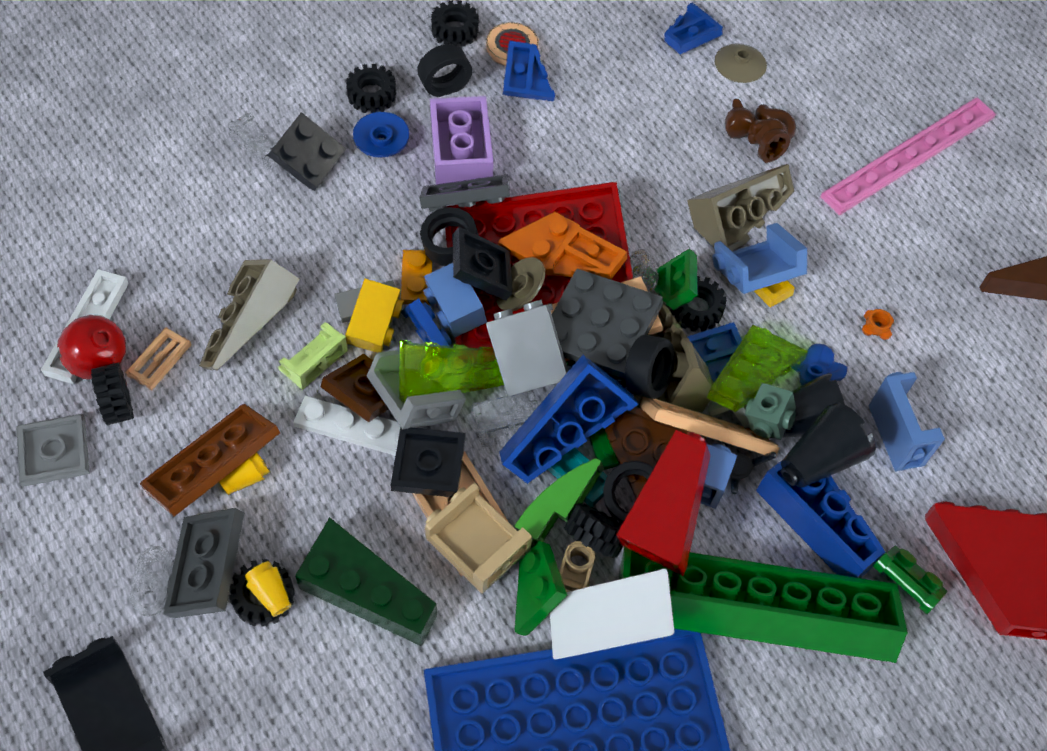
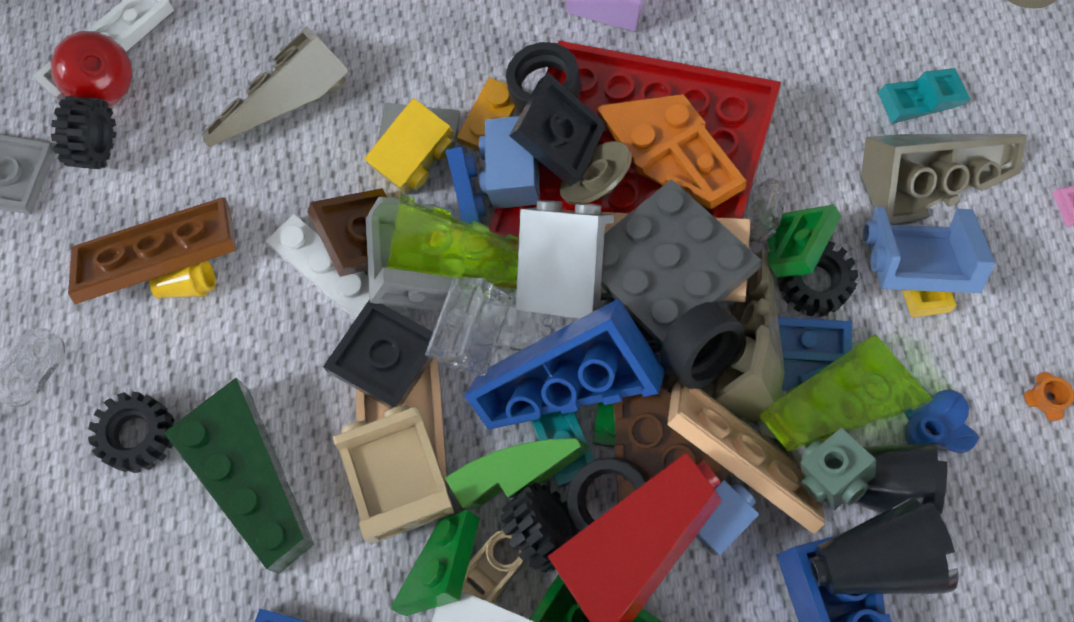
camera: 30 degrees right, 10 degrees up
(150, 383) = (166, 113): light nougat tile -> none
(204, 563) = (84, 373): dark grey plate -> none
(268, 588) = (127, 435): yellow cone -> none
(315, 357) = (326, 172): yellowish green hinge -> none
(465, 192) = (590, 31): dark grey plate -> none
(482, 417) = (469, 325): none -> clear hinge
(711, 161) = (927, 95): none -> teal slope
(744, 465) = (767, 522): black plant -> none
(770, 131) = (1021, 83): reddish brown animal -> none
(898, 426) = (1011, 552): medium blue panel -> none

